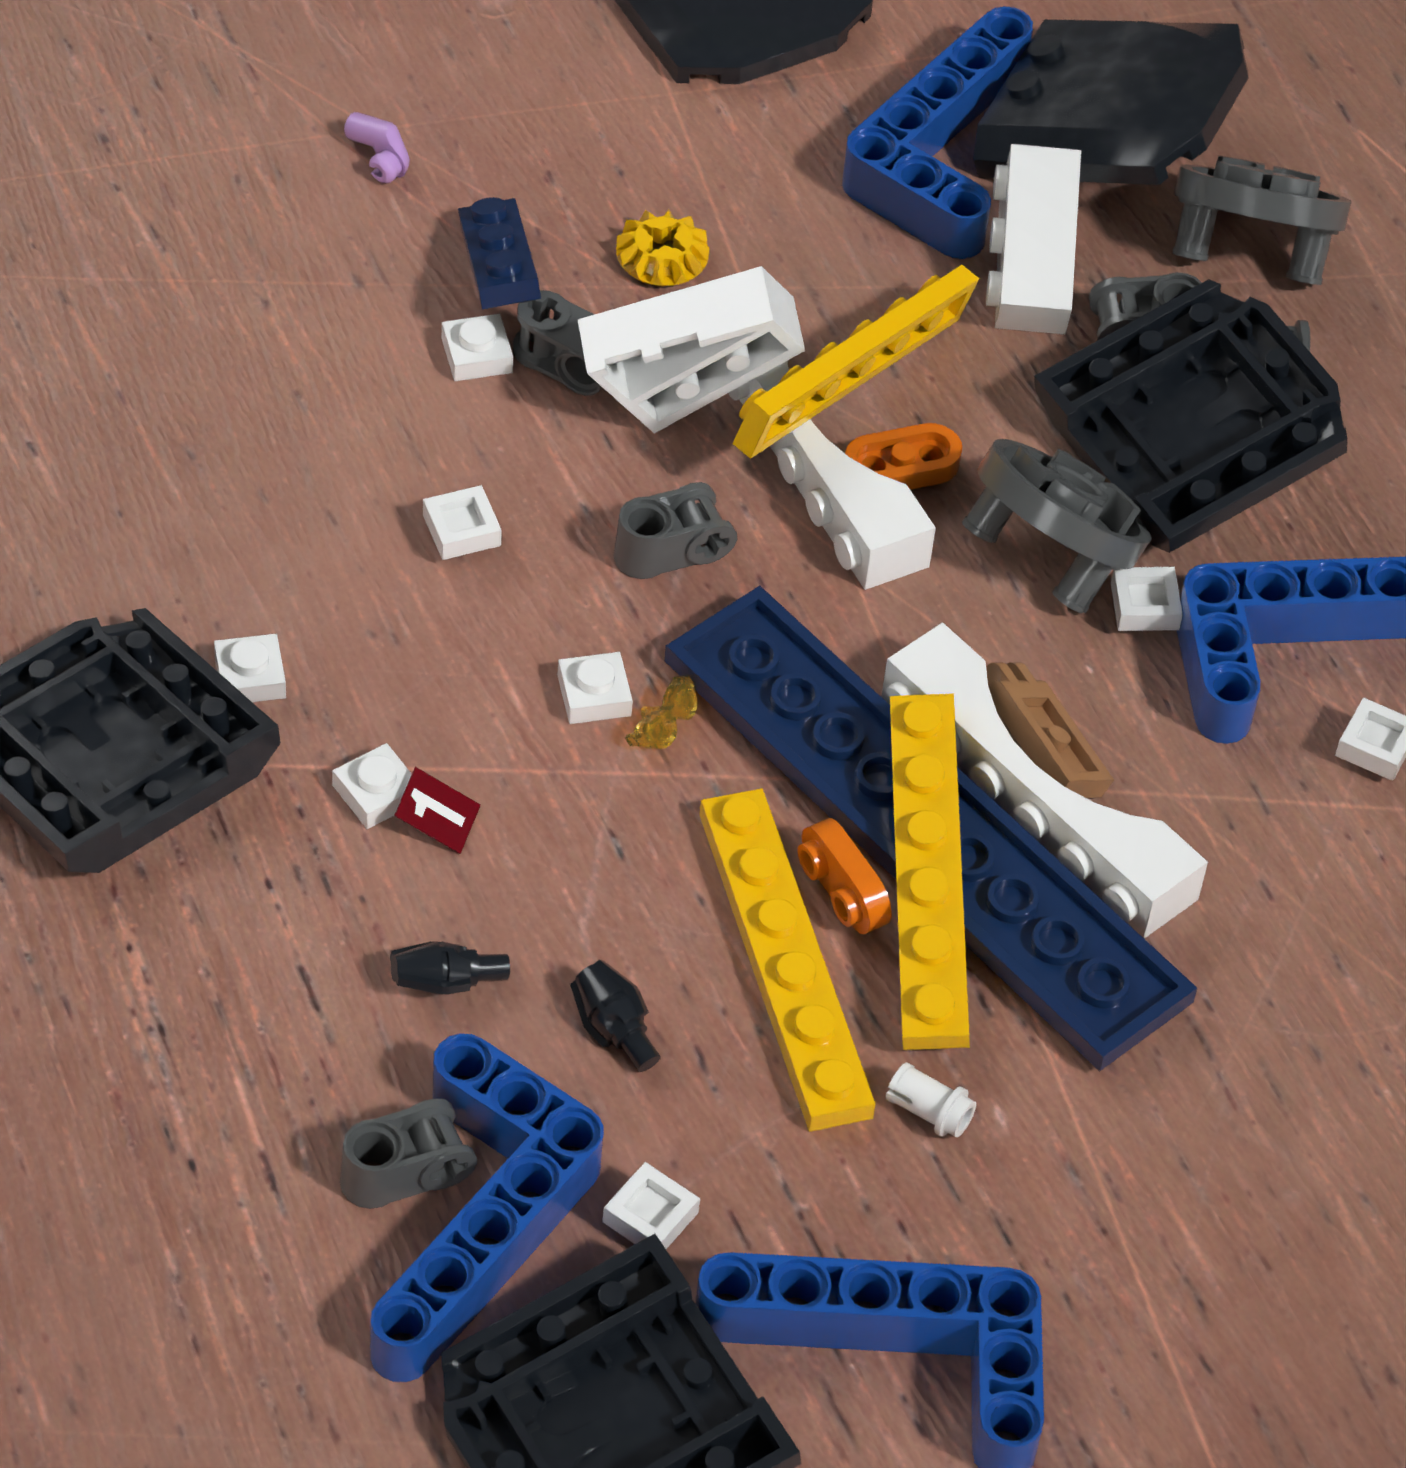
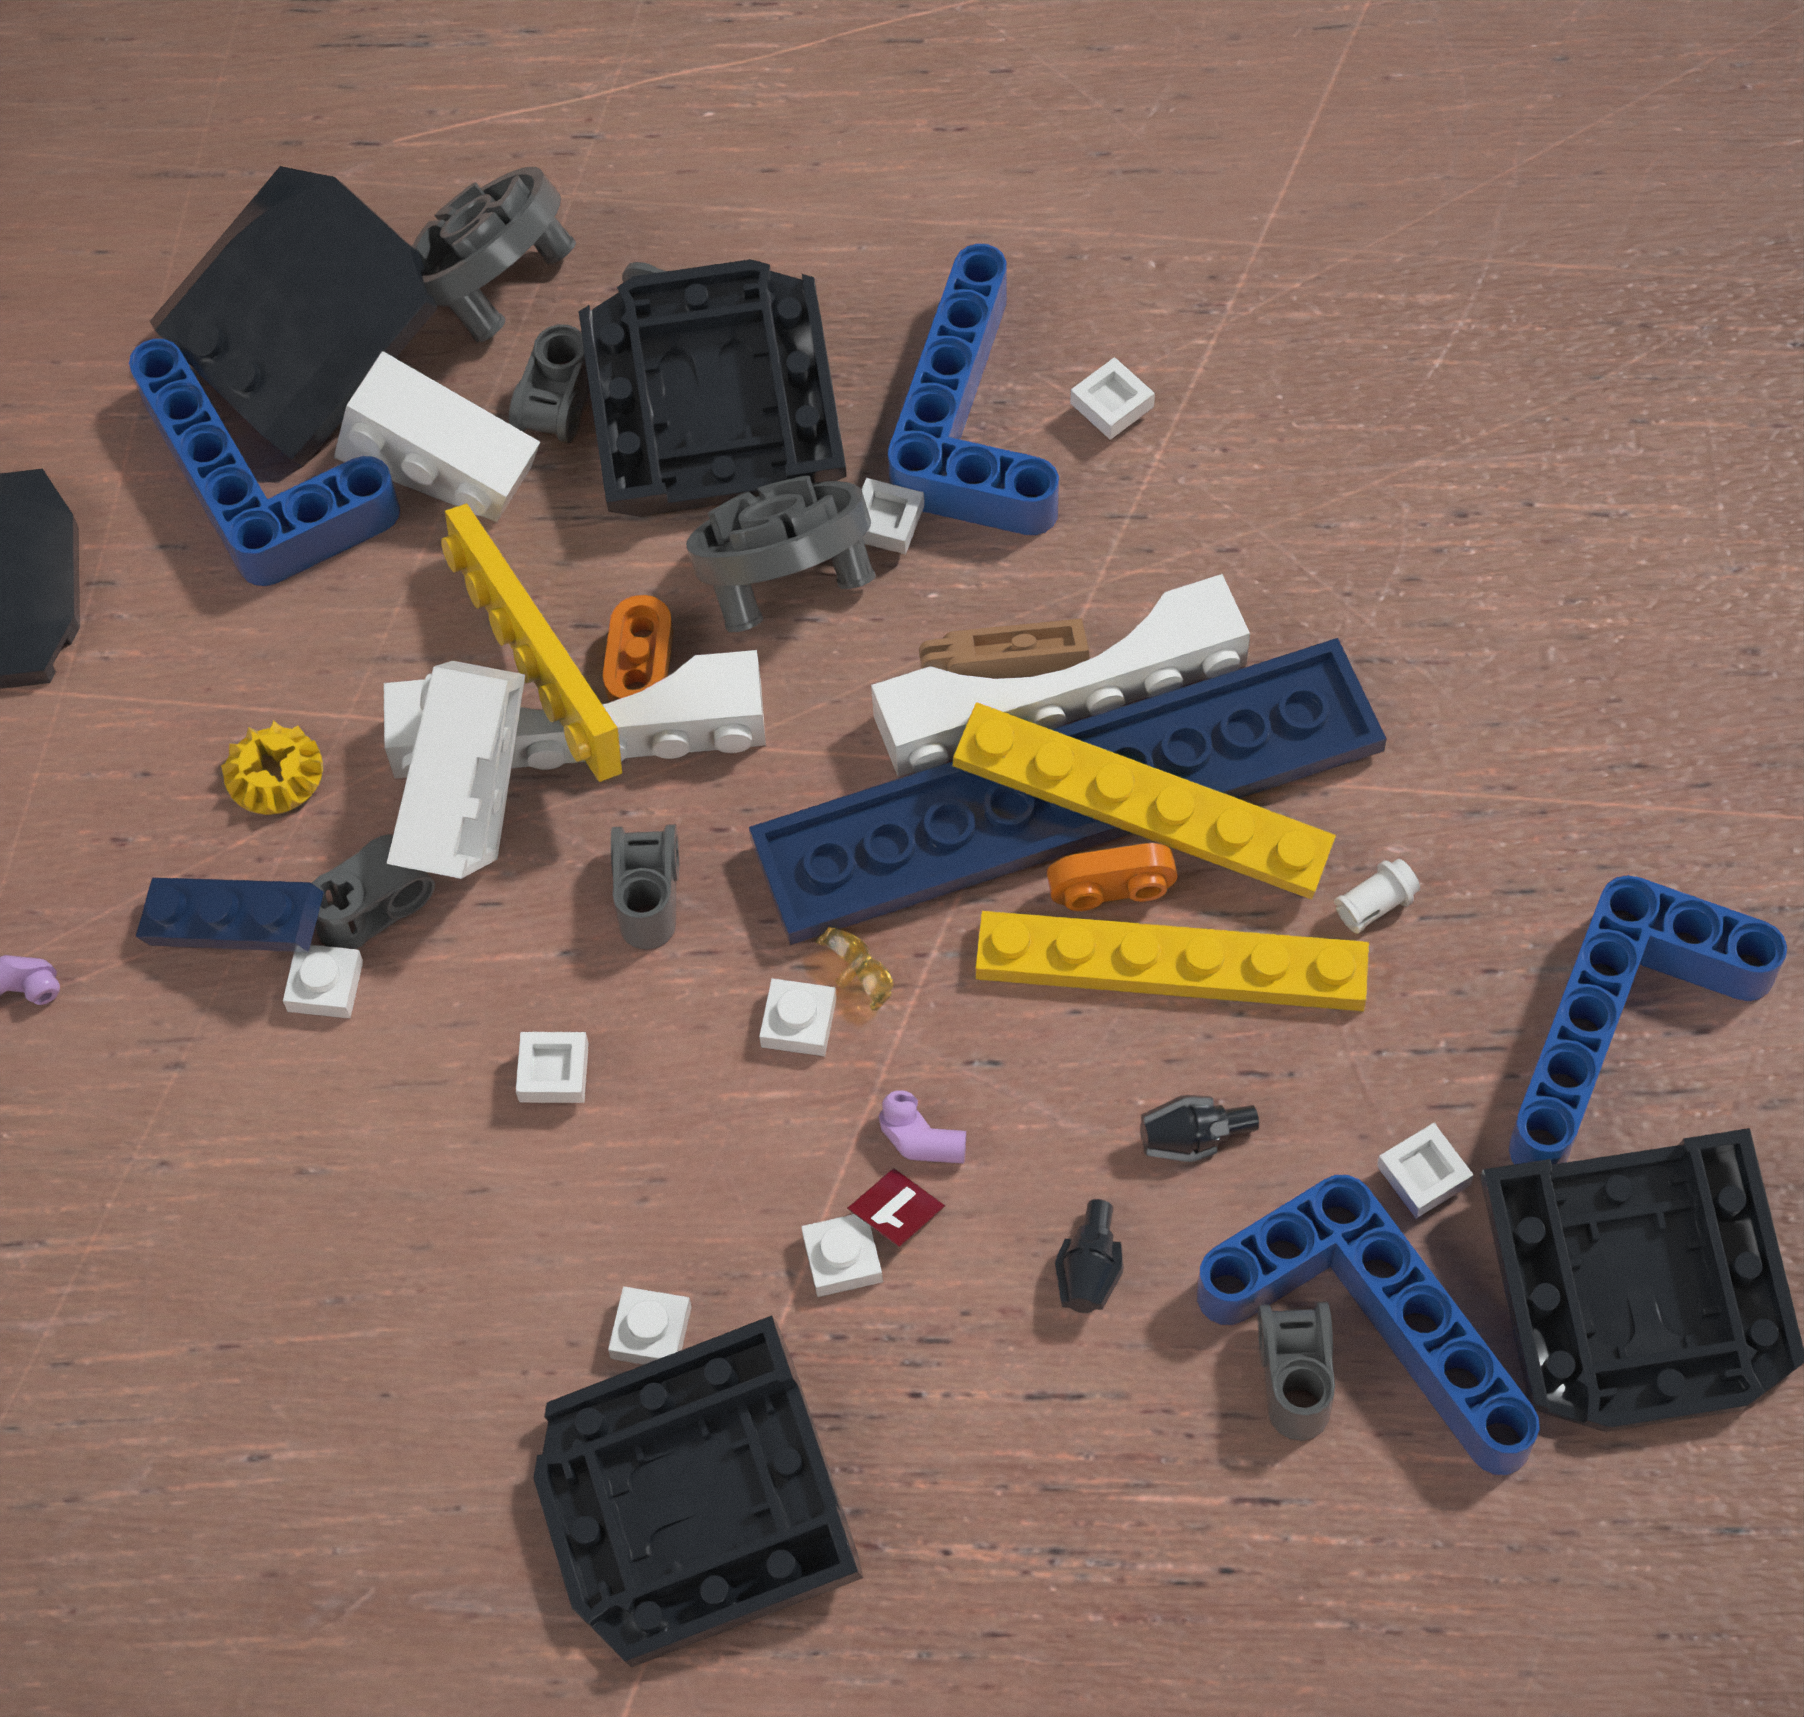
camera: 60 degrees left, 10 degrees up
(515, 804) = (913, 1135): none -> lavender arm

